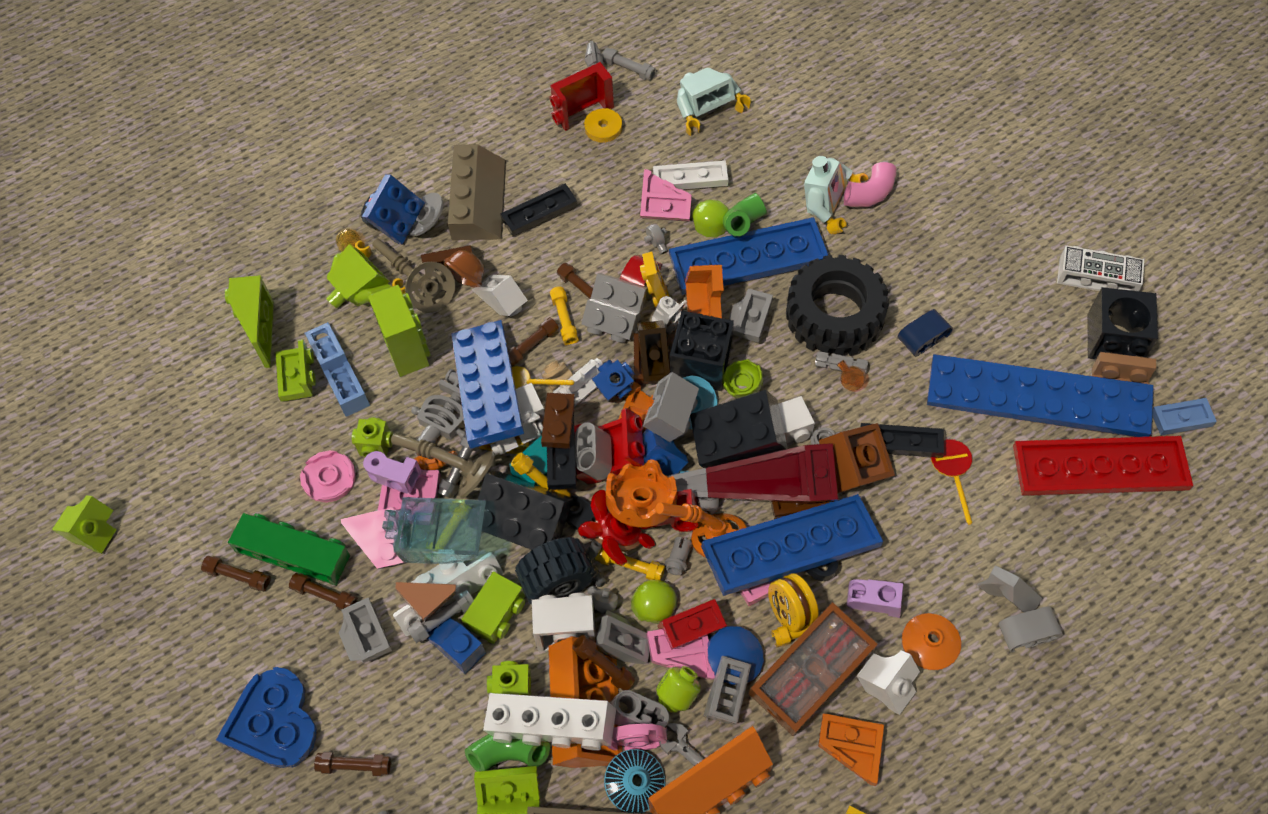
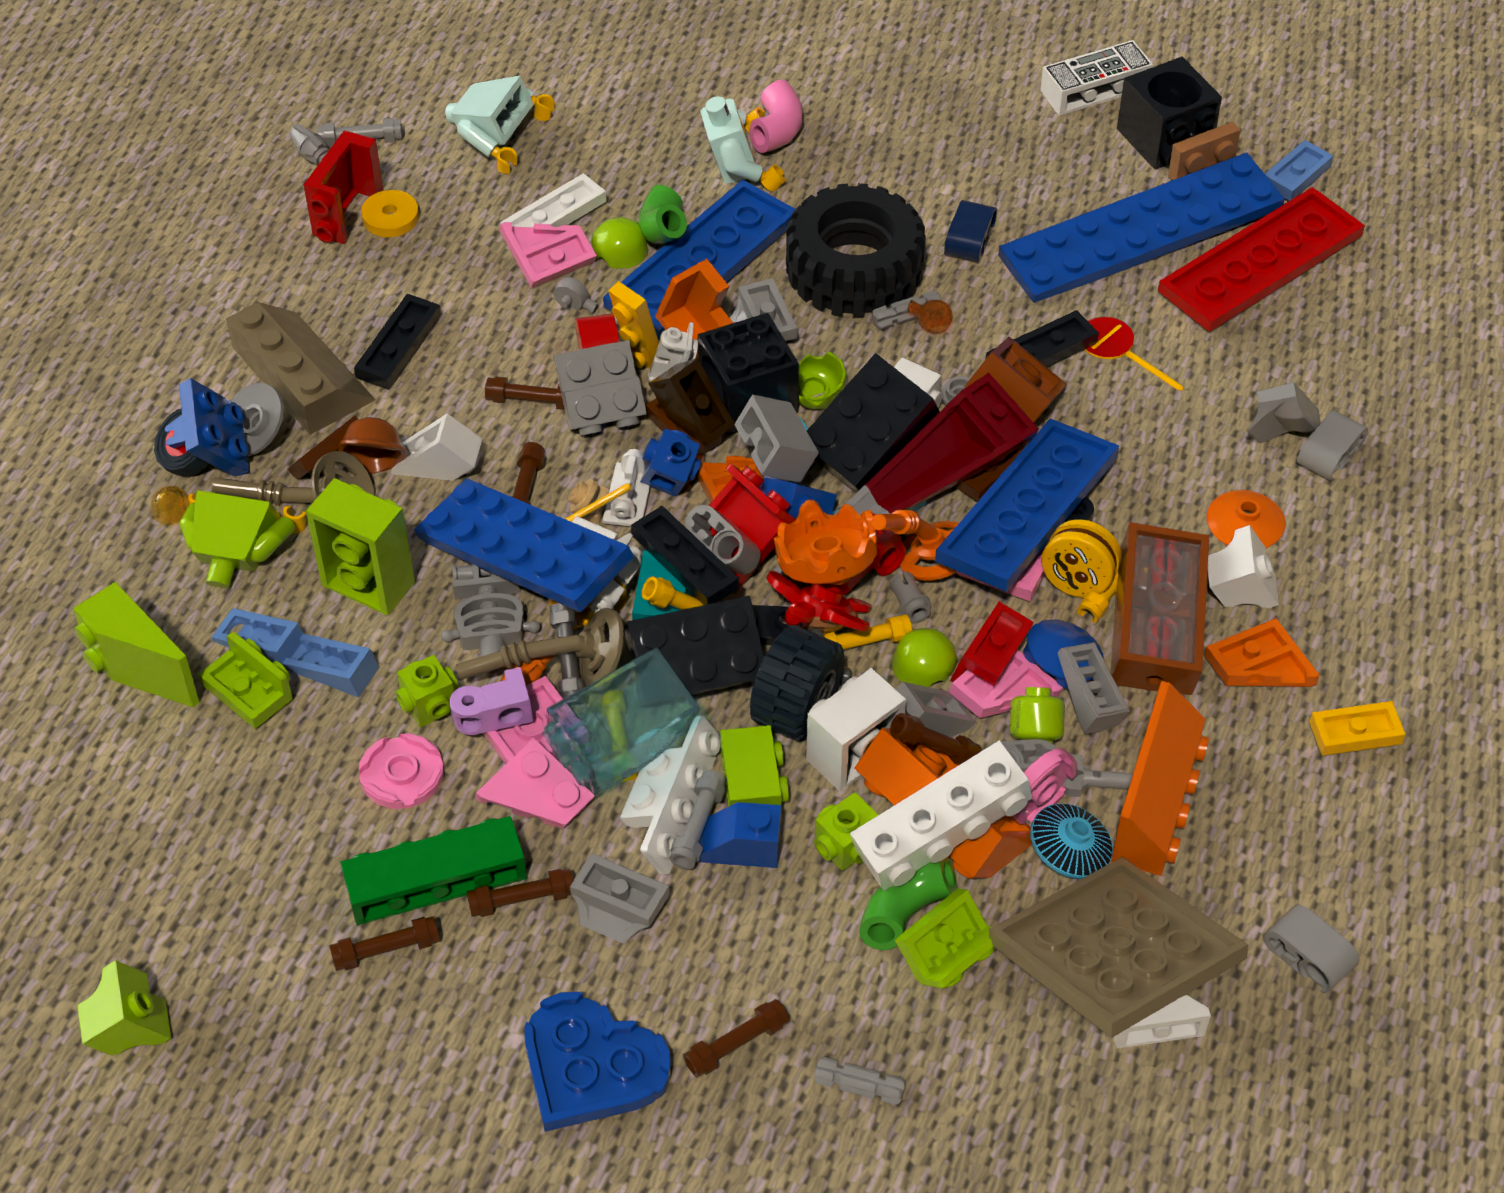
camera: 40 degrees left, 10 degrees down
(425, 597) = (668, 800): nougat slope -> none
(558, 420) = (658, 524): reddish brown plate -> none
(568, 332) = (562, 450): yellow bar -> none
(875, 596) = (1159, 503): lavender leg -> none

